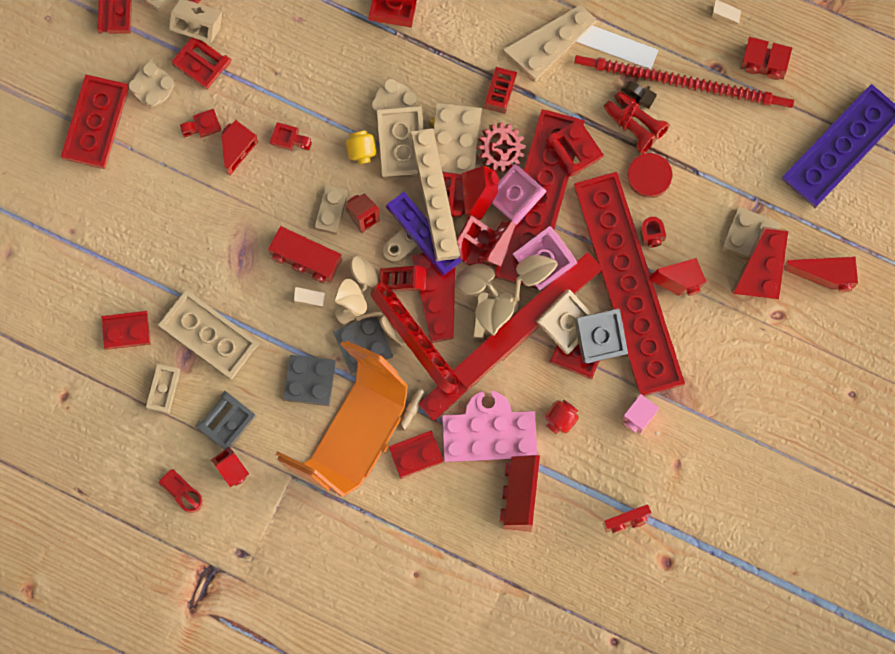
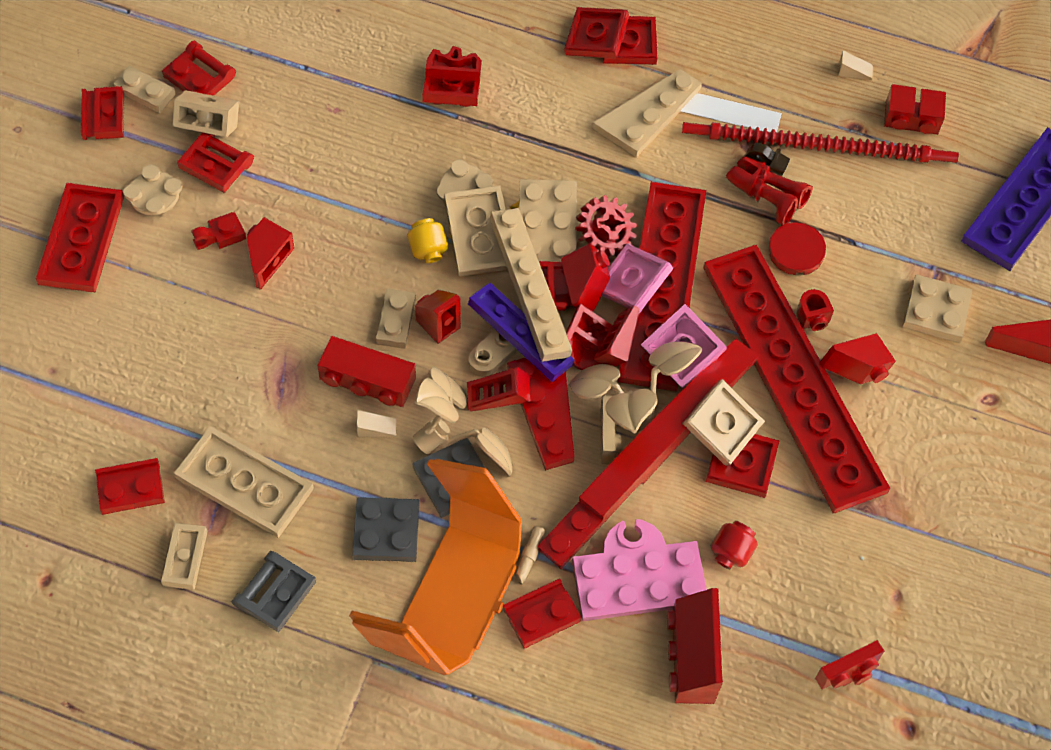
camera: 10 degrees left, 15 degrees down
(180, 488) = (214, 688): red piece -> none
(230, 467) = (285, 650): red brick -> none
(287, 136) = (332, 236): red plate -> none
(414, 337) = (525, 458): red beam -> none
(498, 106) = (591, 183): red slope -> none
(580, 143) = (705, 214): red plate -> none
(601, 335) = (771, 435): plate -> none
(640, 414) = (838, 532): bright pink brick -> none
(764, 267) = (966, 335): red wedge -> none

